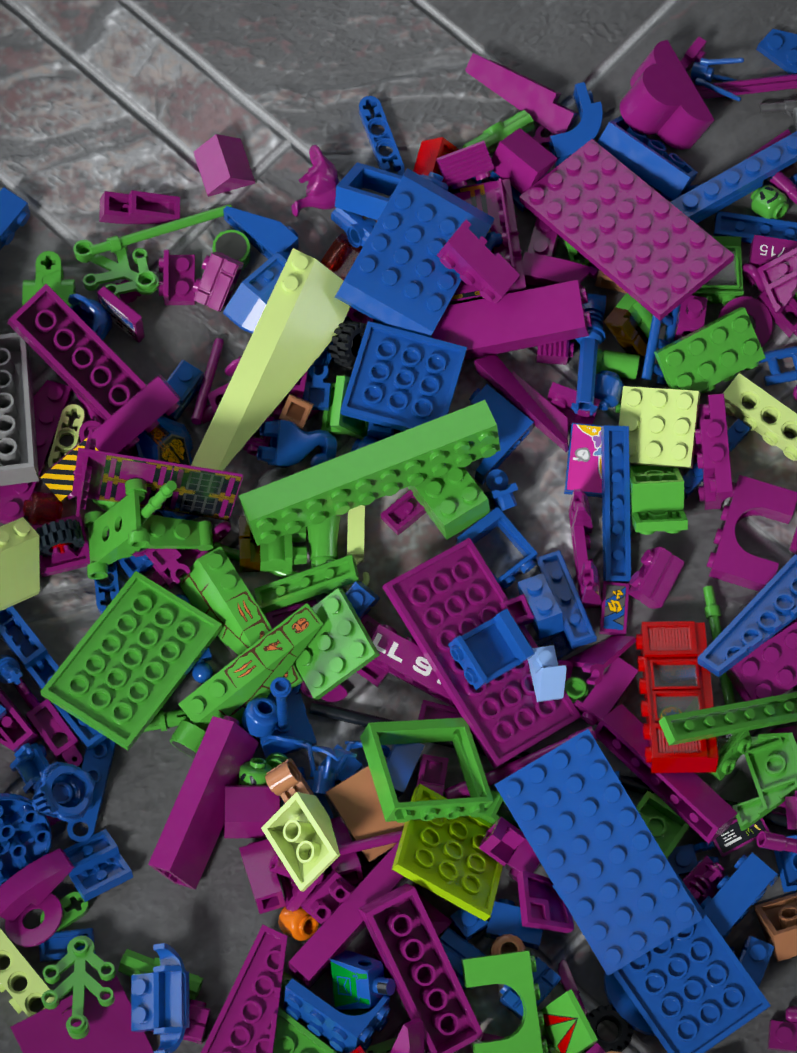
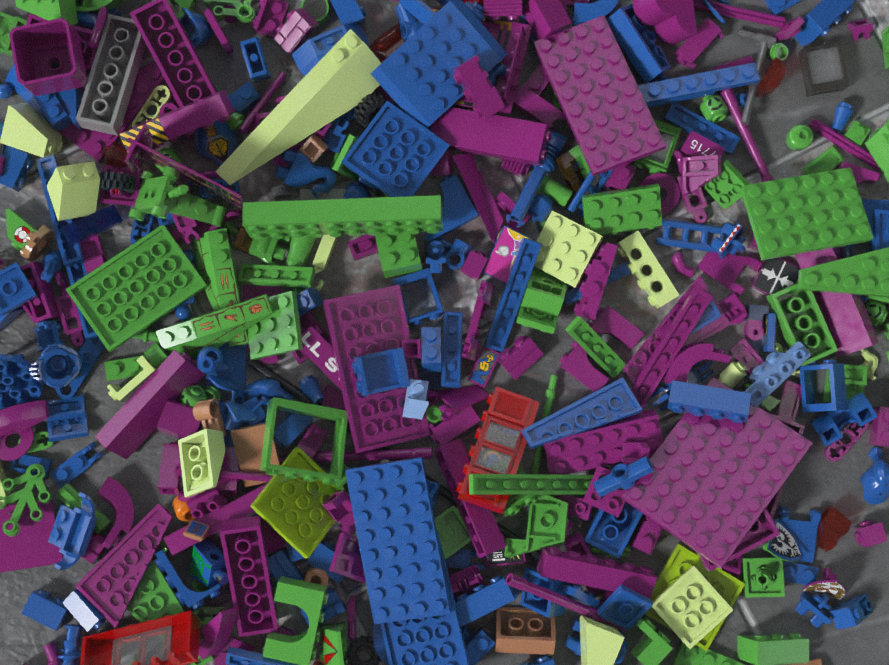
camera: 25 degrees right, 15 degrees up
(42, 605) = (91, 225): none -> clear blue plate
(55, 640) = (93, 253): none -> magenta plate
(128, 924) = (75, 466): none -> blue hinge
(149, 774) = (122, 368): none -> bright green plate
(165, 800) = (130, 388): none -> yellowish green panel
(179, 333) = (255, 60): none -> blue brick
(183, 413) = (235, 121): none -> bright green plate
(213, 951) = (122, 505): none -> magenta arch
(330, 933) = (196, 530): none -> slope
(341, 731) = (262, 387): none -> blue arm
(403, 709) = (311, 388): none -> blue cone
(466, 380) = (444, 166): none -> magenta panel
(527, 474) = (457, 248): none -> blue piece
(552, 487) = (474, 264): none -> magenta brick
(718, 135) = (698, 43): none -> magenta brick
(746, 528) = (595, 347): none -> bright green plate

